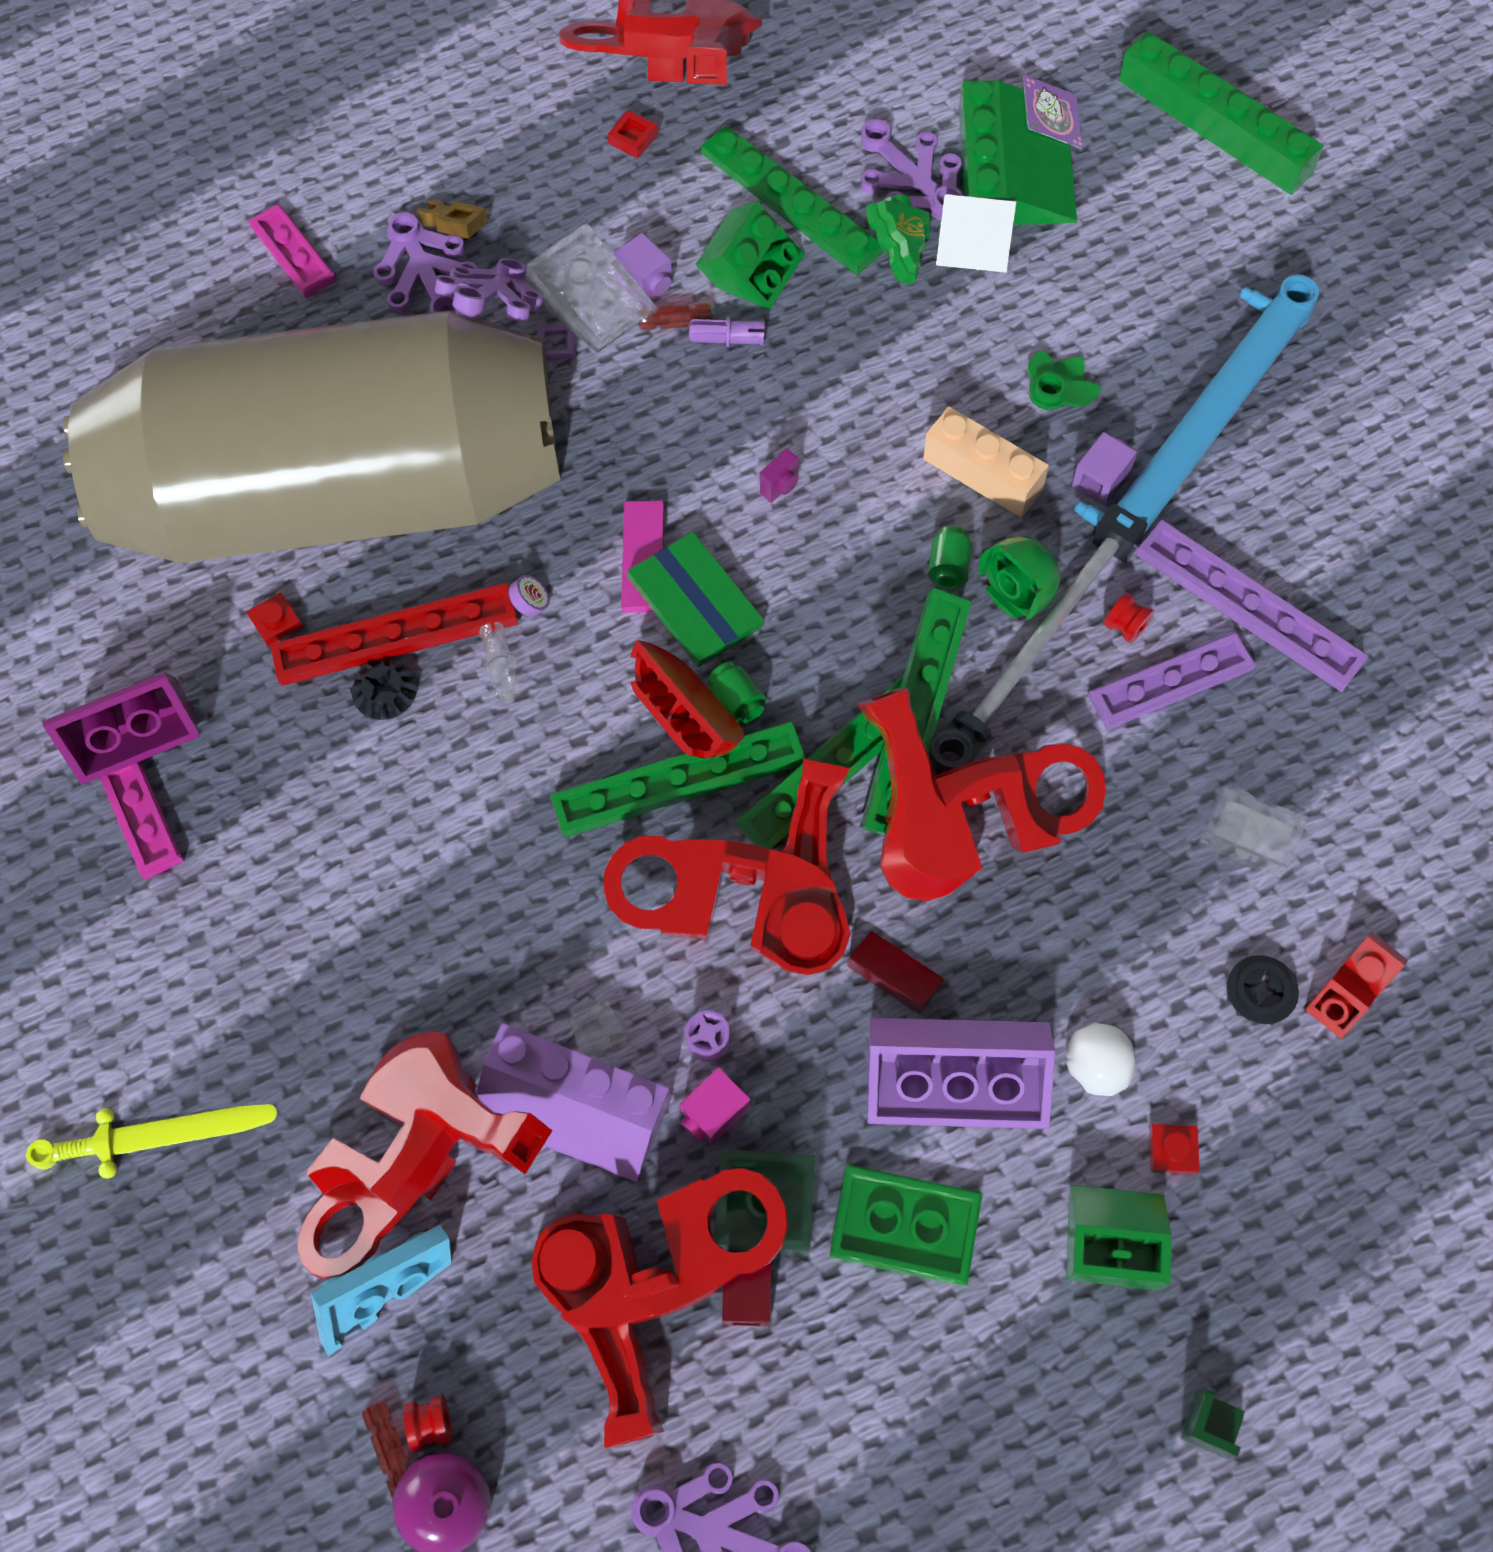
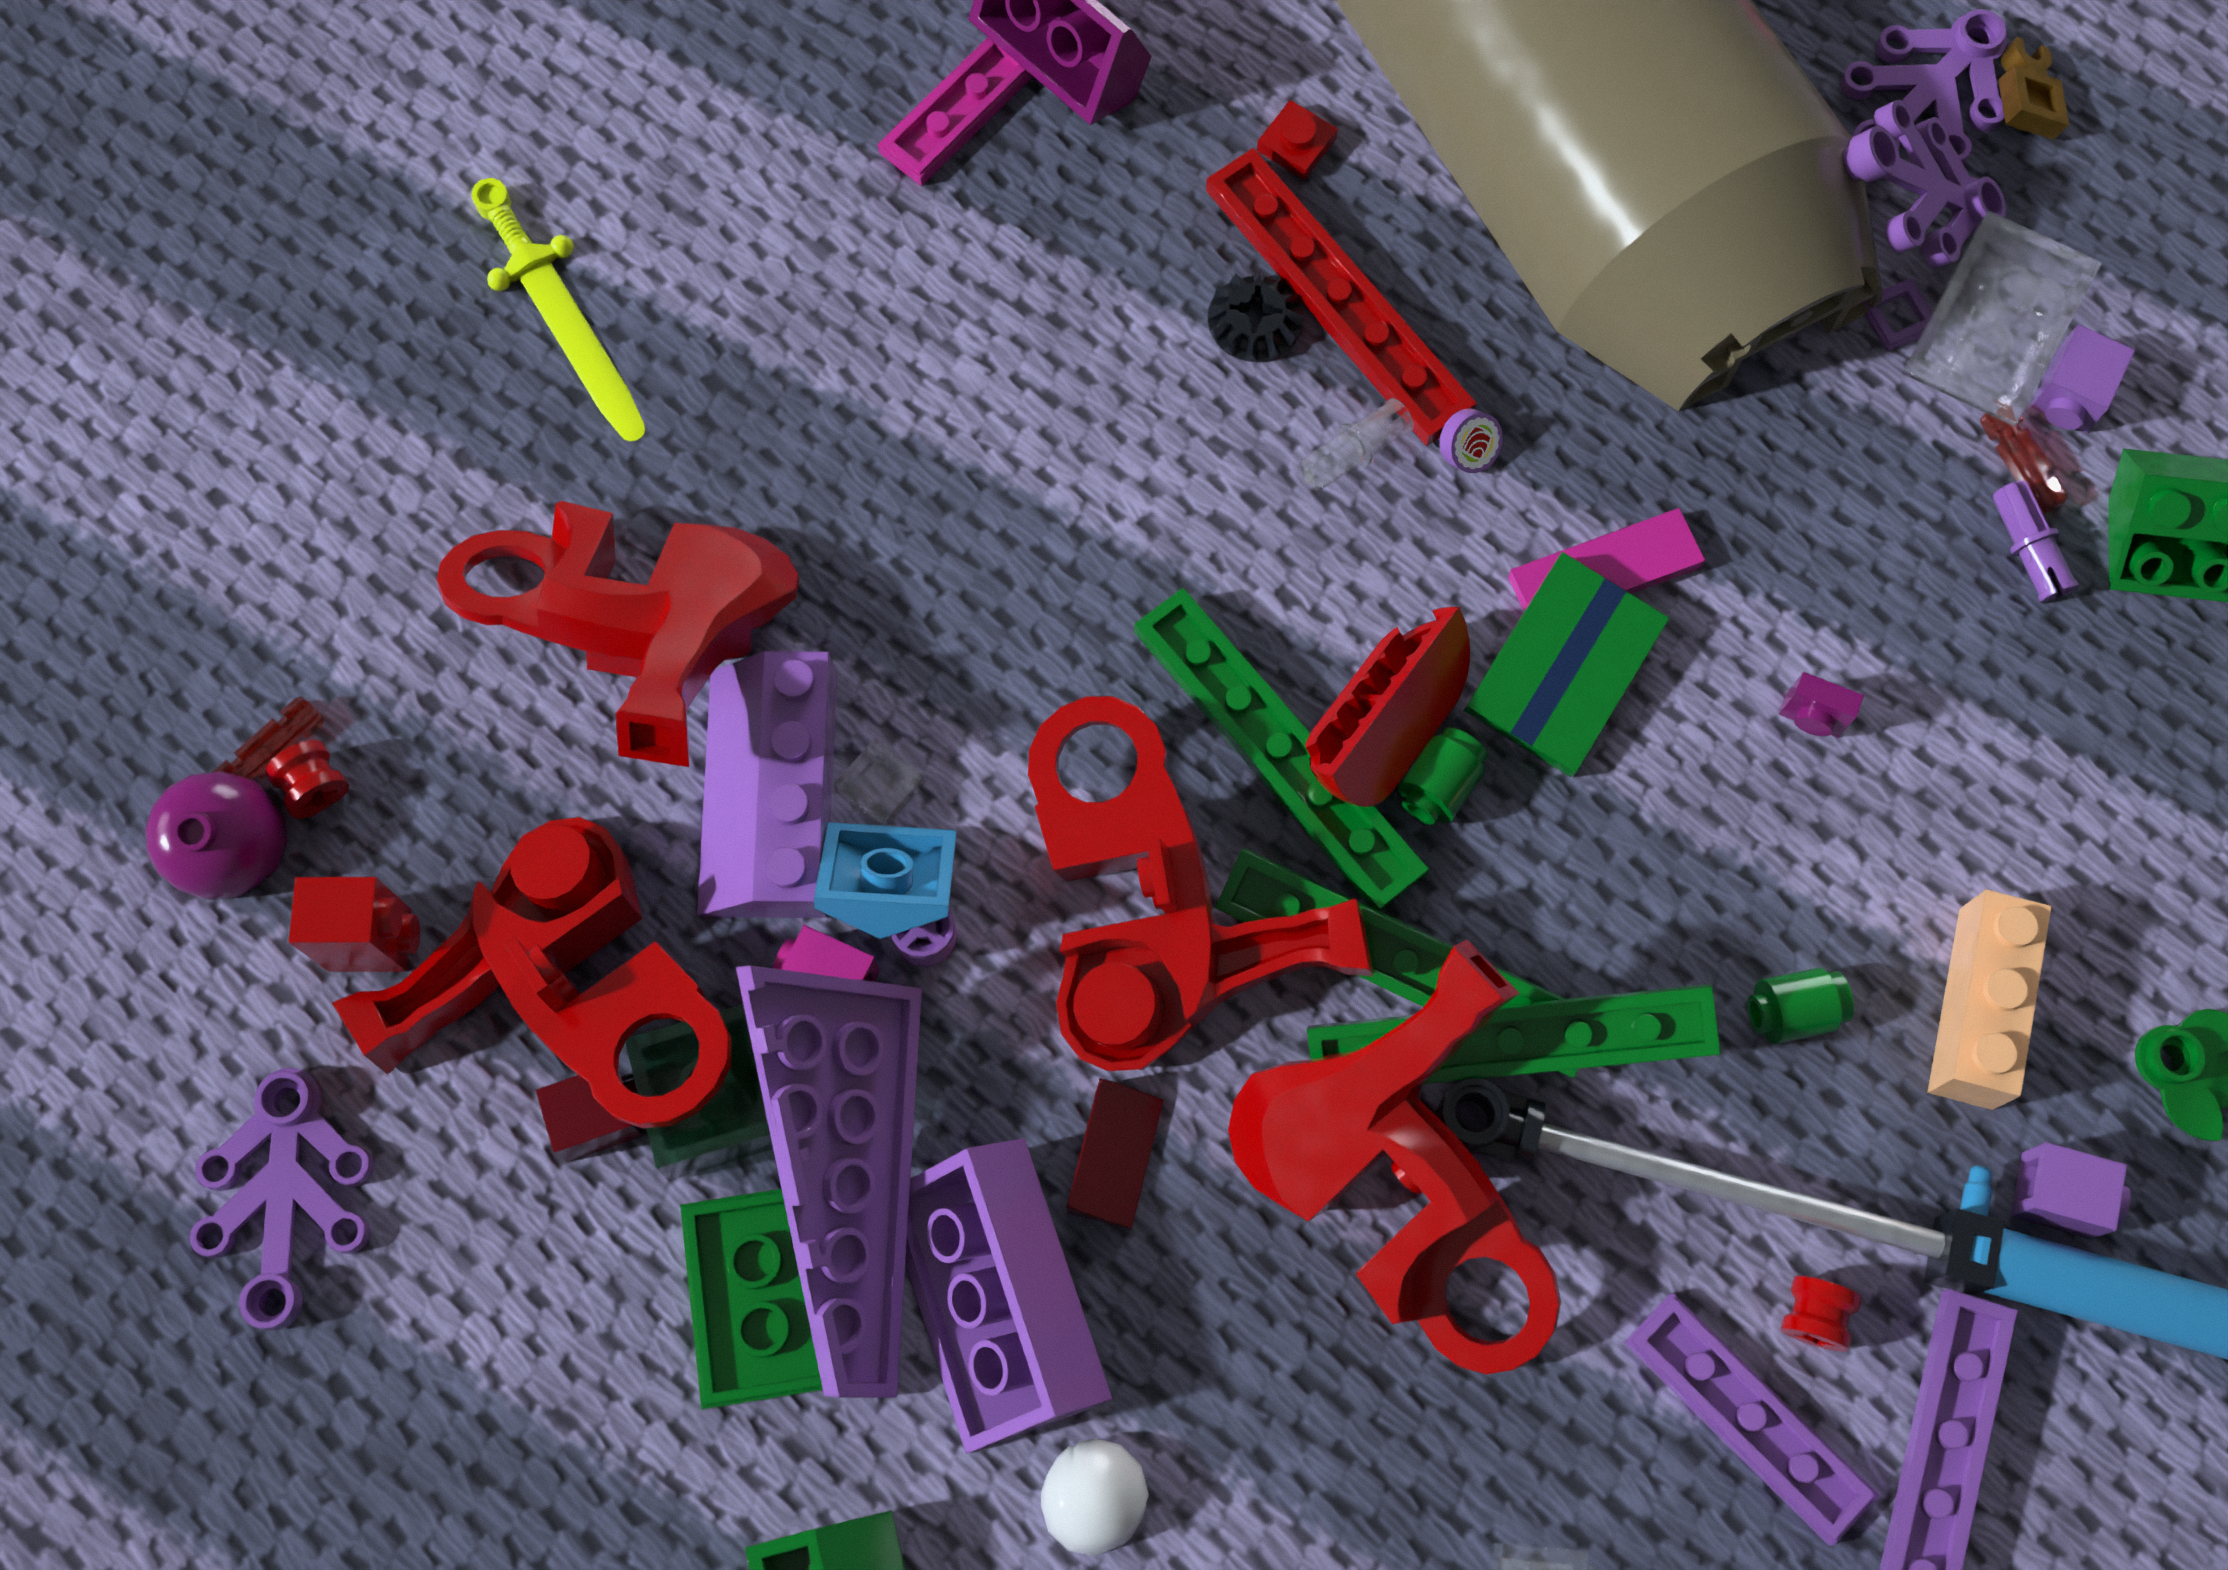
camera: 65 degrees right, 5 degrees up
(363, 1292) = (435, 635): medium azure wing -> none
(556, 1412) = (352, 924): none -> red brick
(669, 1039) = (885, 876): none -> dark azure slope
(815, 1120) = (840, 1117): none -> medium lavender wing
(1020, 575) = (1815, 1121): green cylinder -> none

